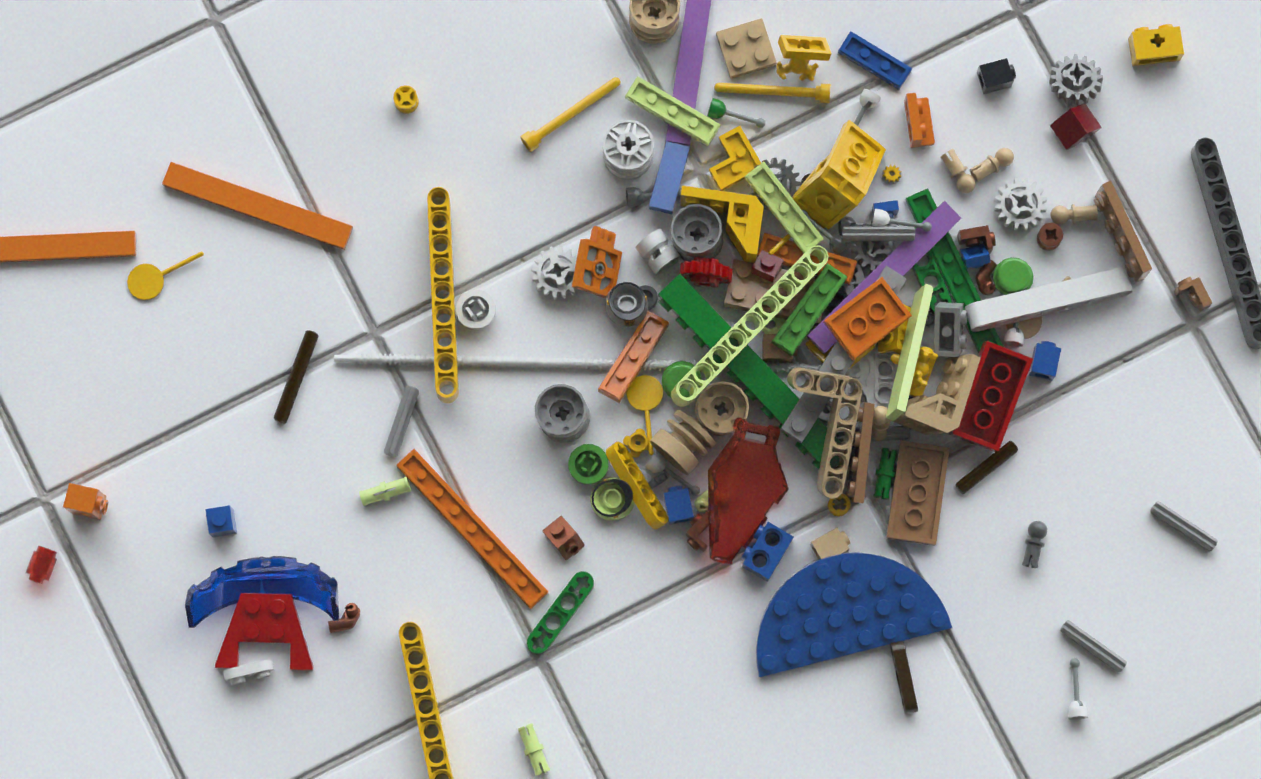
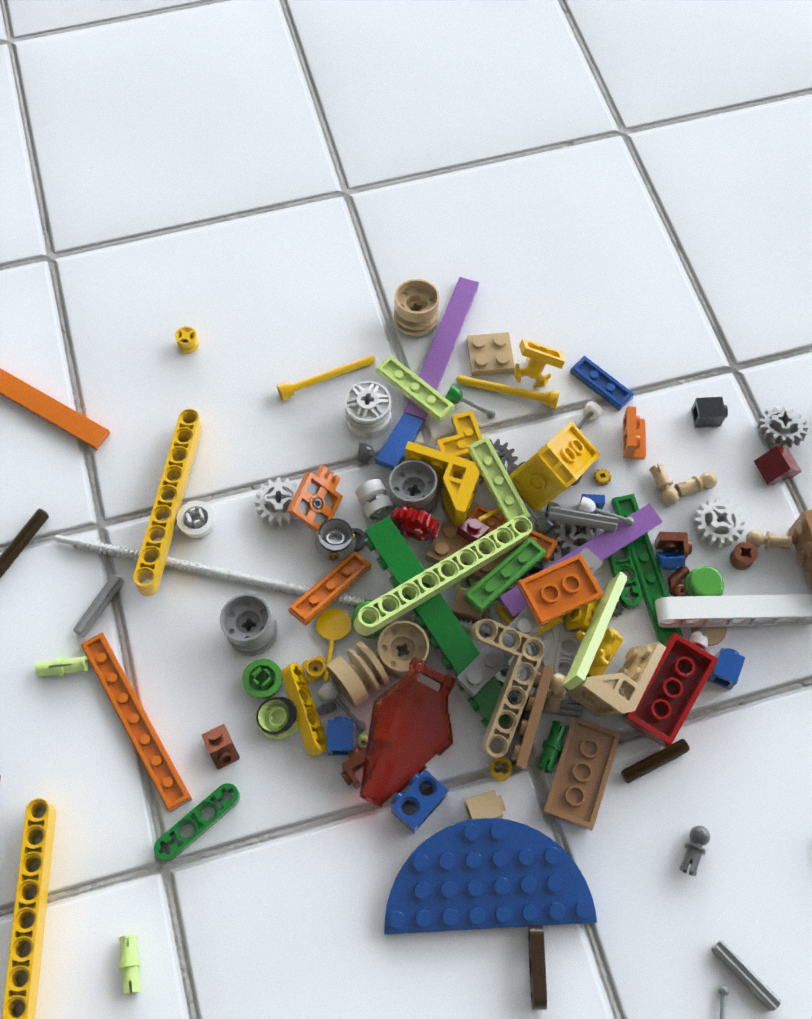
camera: 10 degrees right, 15 degrees down
(949, 329) = (637, 618): light grey brick -> none

